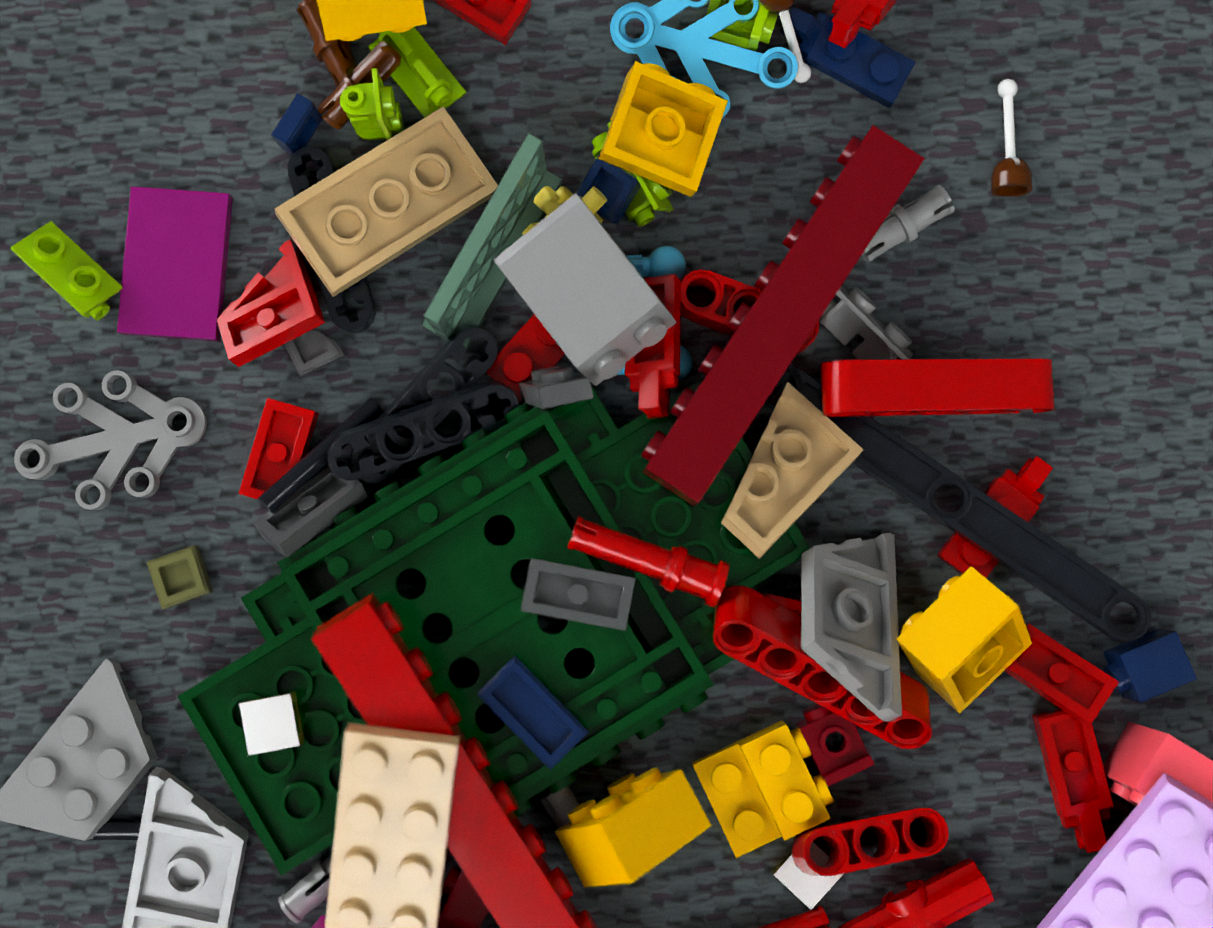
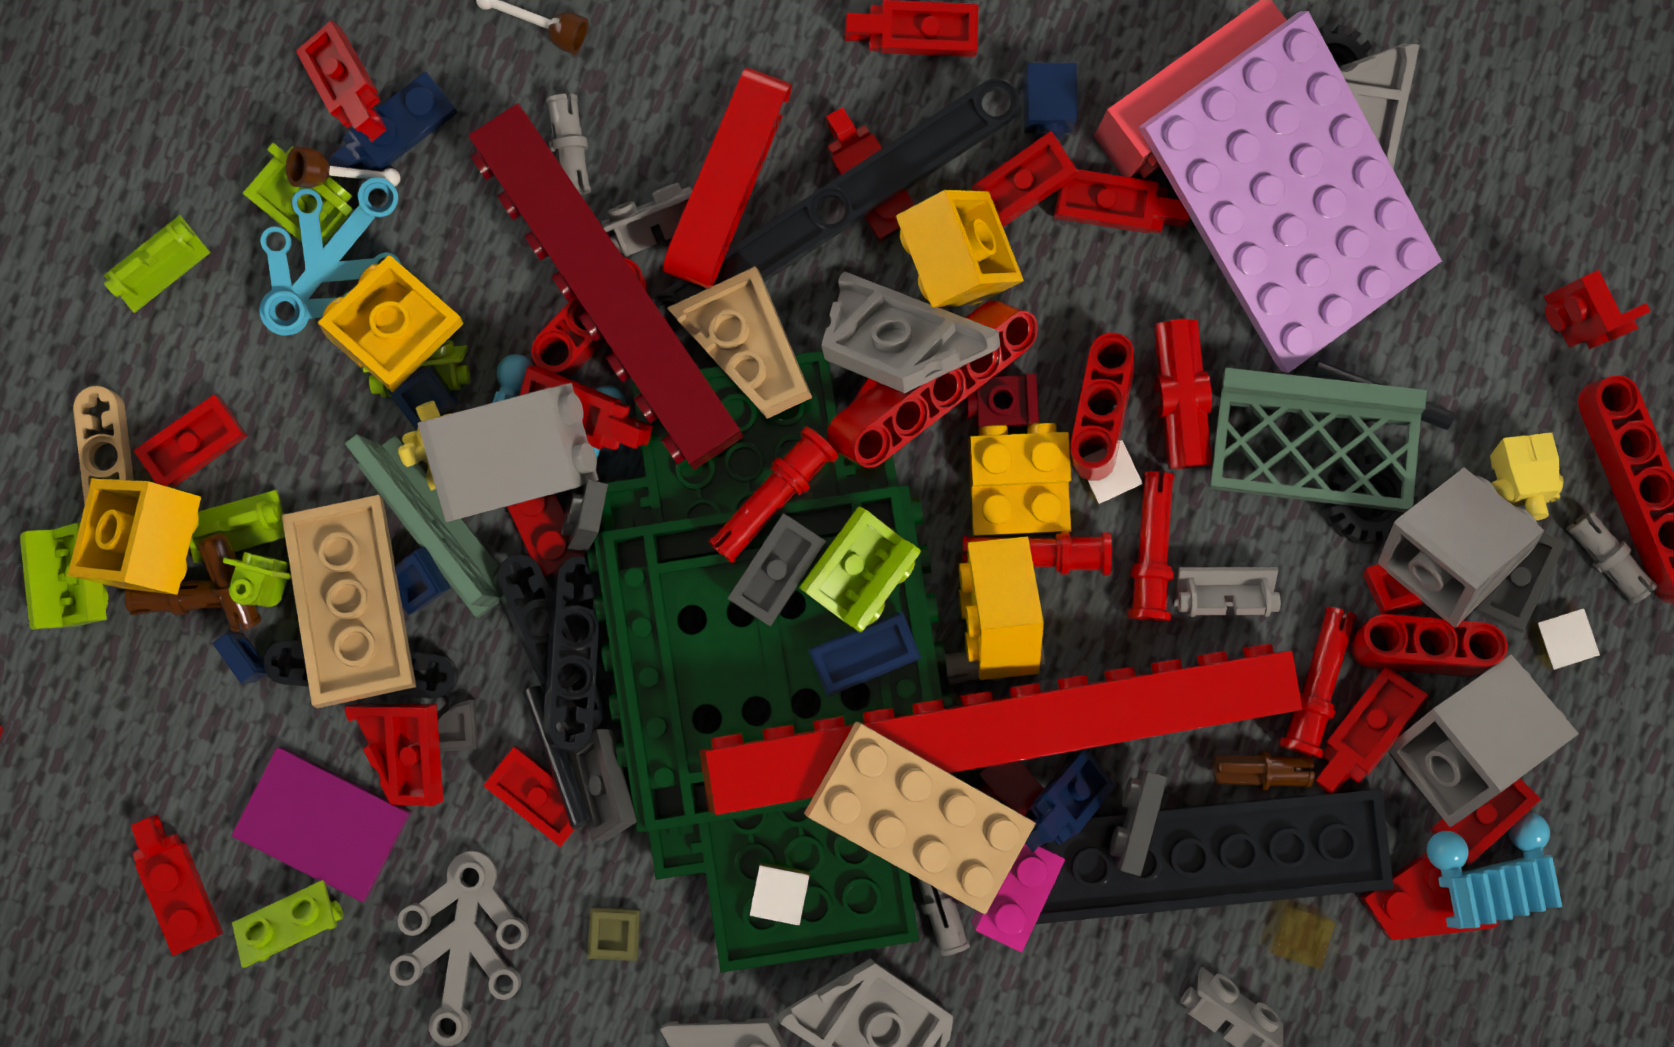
camera: 70 degrees left, 0 degrees up
(64, 154) = (173, 887): none -> red hinge
(433, 257) = (419, 580): none -> dark blue tile
(611, 676) = (860, 570): none -> lime bracket
(711, 857) = (1065, 552): none -> red pin
(1160, 507) = (917, 28): none -> red hinge

